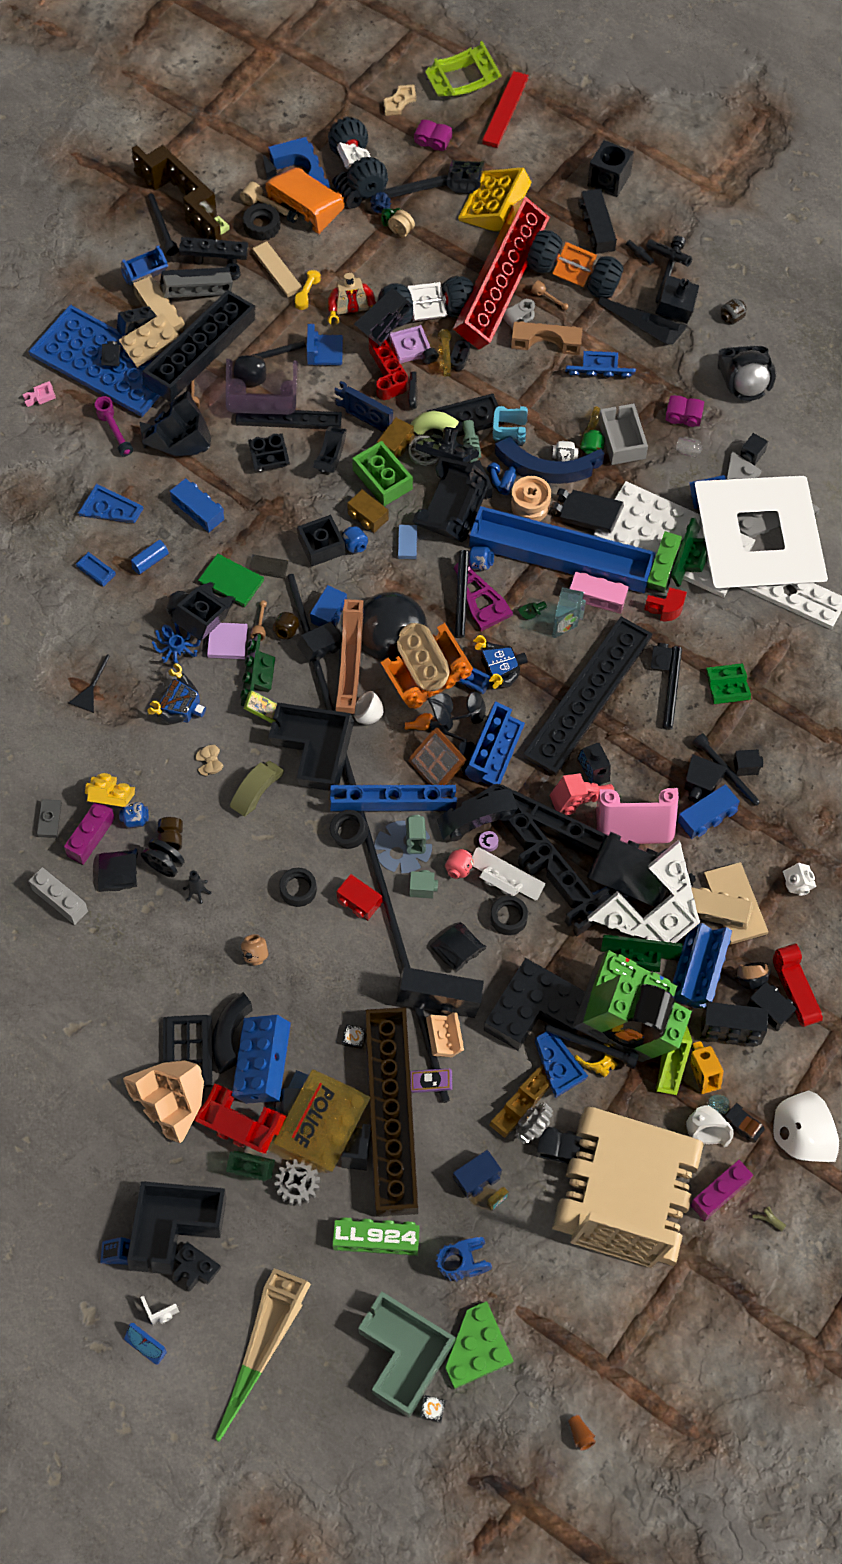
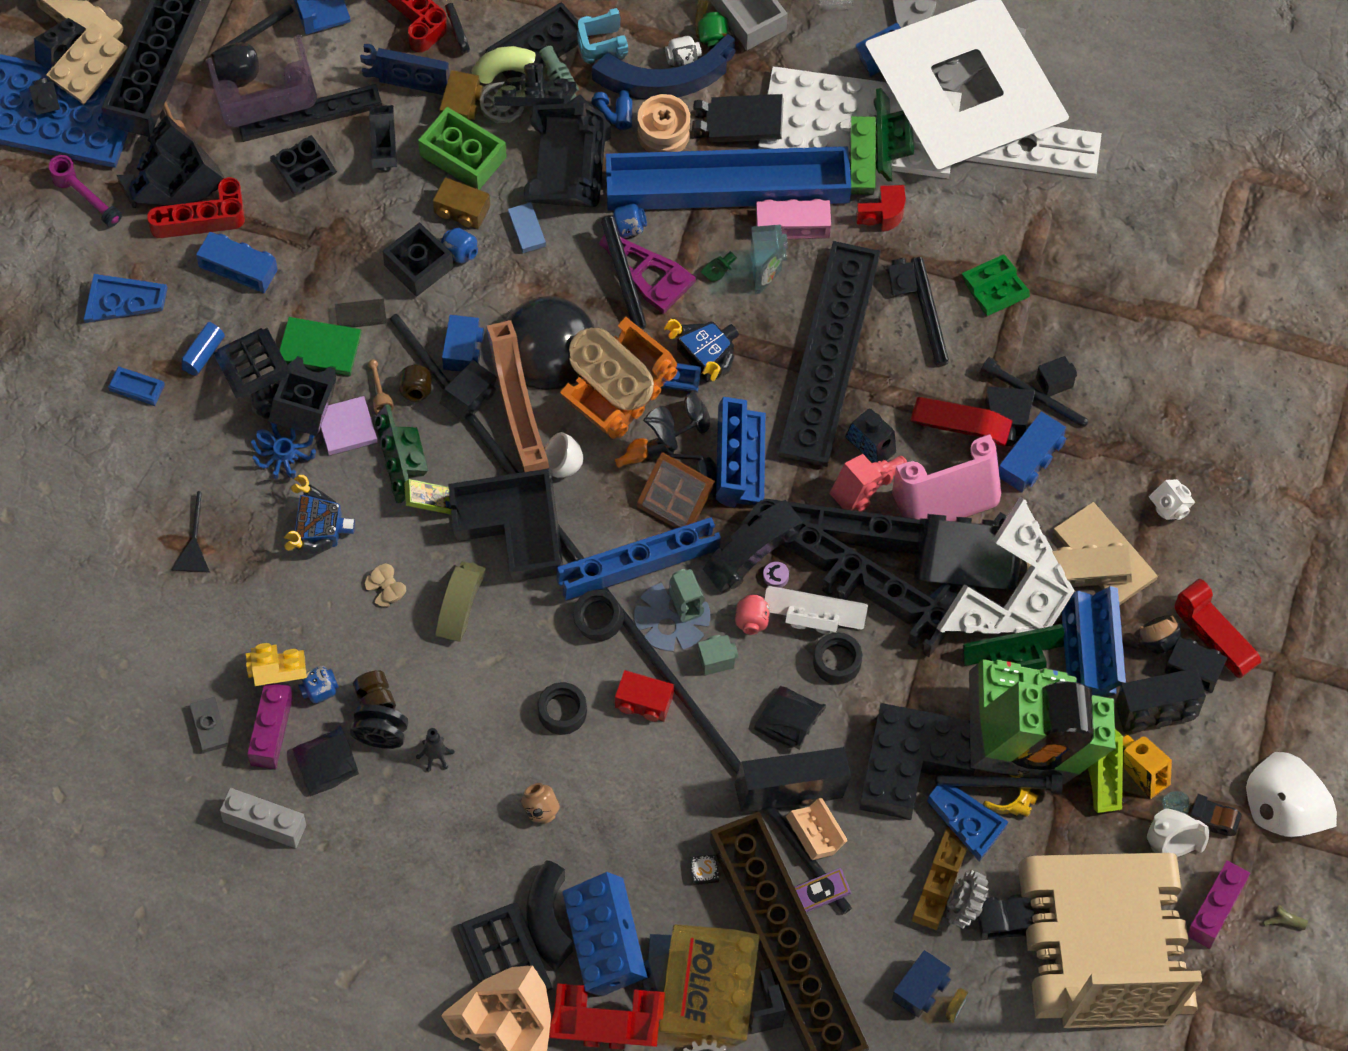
camera: 20 degrees left, 0 degrees up
(161, 464) = (195, 213): none -> red beam
(192, 580) = (267, 347): none -> black piece
(664, 772) = (961, 419): none -> red beam

